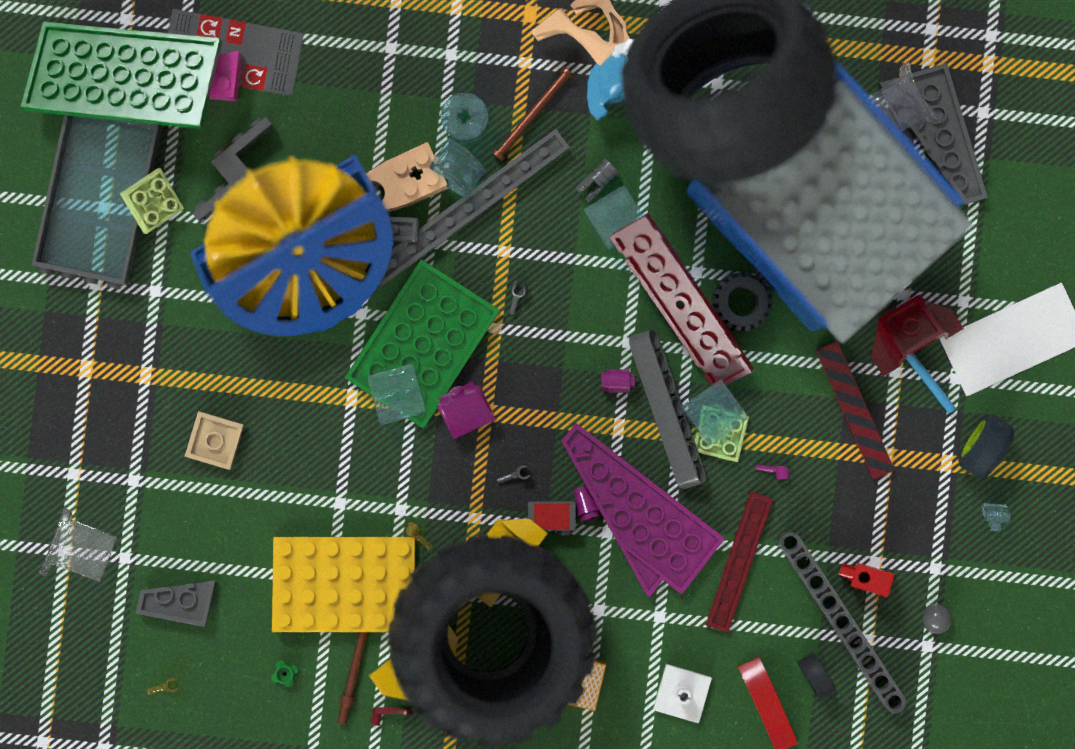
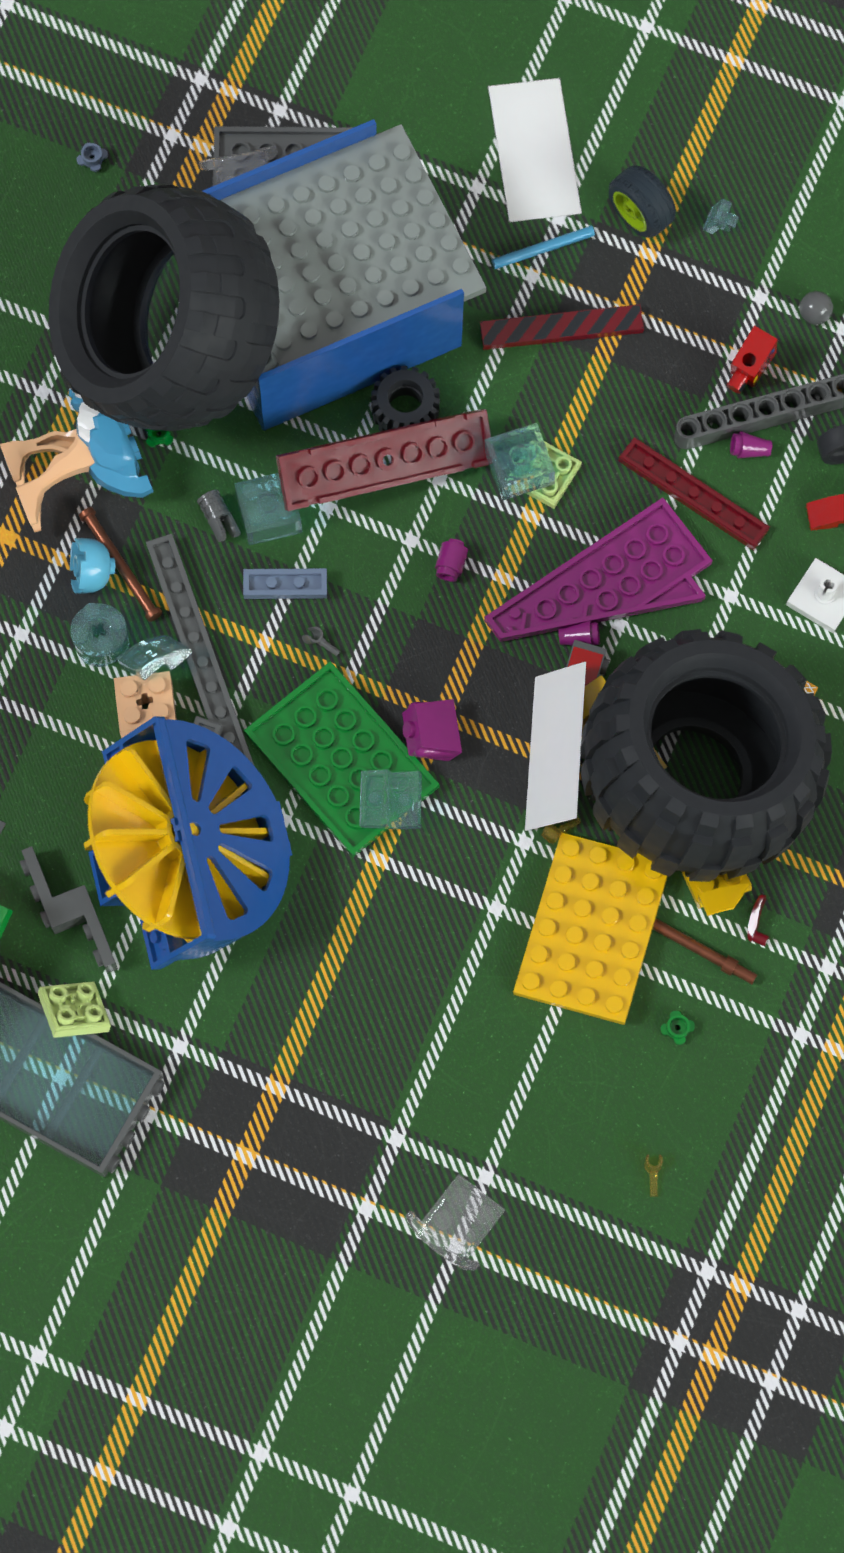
camera: 80 degrees left, 15 degrees down
(180, 603) = (559, 1125): dark grey wing -> none
(214, 440) = (378, 1026): tan plate -> none
(479, 513) = (555, 747): none -> white sticker
(514, 475) = (523, 700): dark grey hand -> none
(520, 91) = (90, 565): none -> medium azure cylinder
(556, 252) = (284, 583): none -> sand blue plate
(666, 409) = (499, 515): dark grey beam -> none
(781, 471) = (607, 419): magenta hand -> none
(794, 596) = (747, 446): none -> magenta cone
(909, 330) = (494, 246): dark red piece -> none

